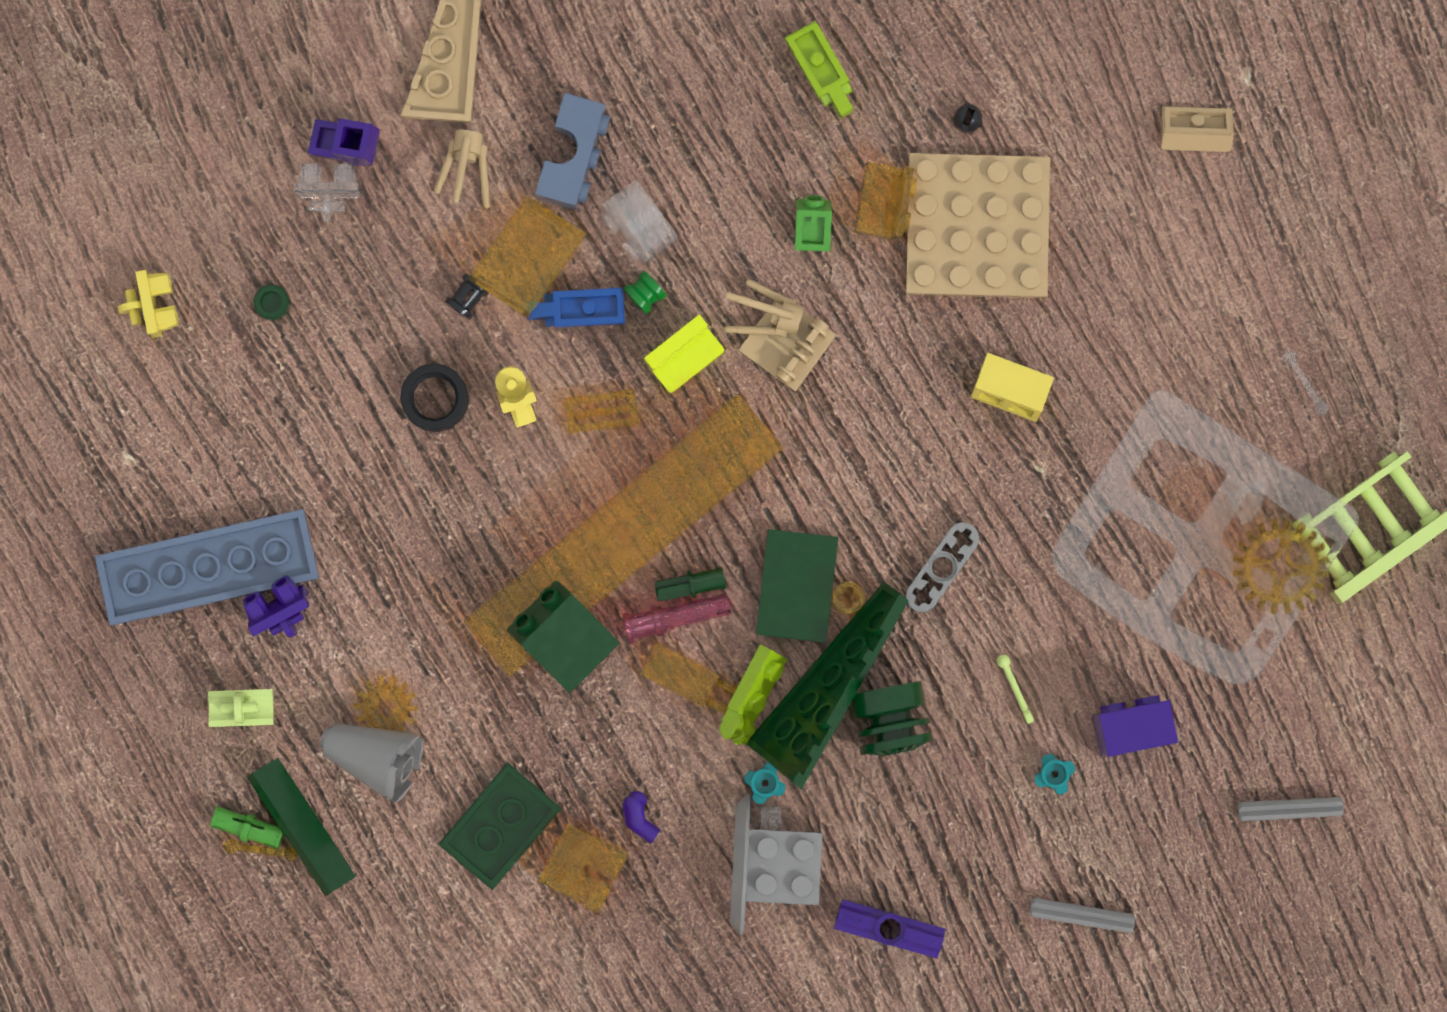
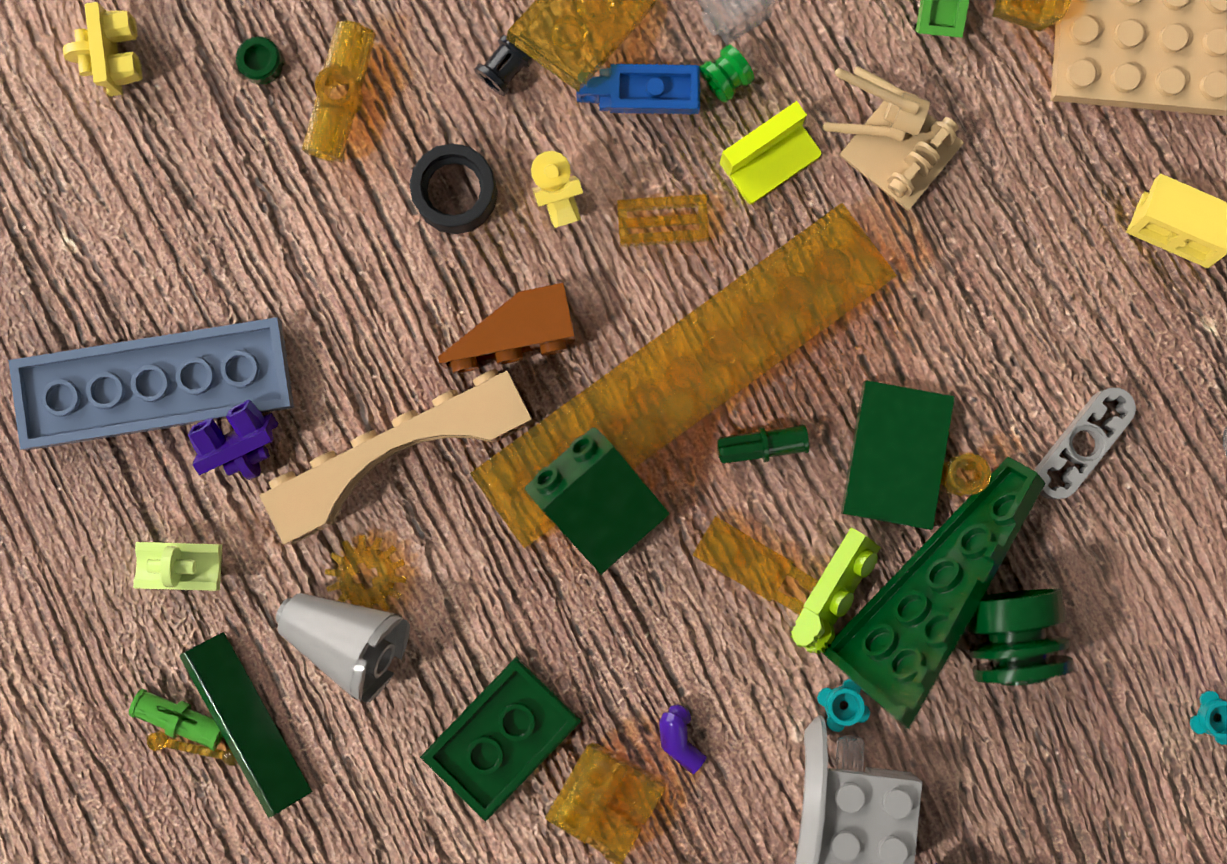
camera: 10 degrees right, 0 degrees up
(341, 650) = (314, 498): none -> tan arch
(342, 303) = (344, 65): none -> clear yellow piece
(498, 501) = (523, 324): none -> dark orange slope
(660, 620) = (721, 487): clear pink pin -> none
(1003, 661) = (1156, 569): yellowish green hinge -> none

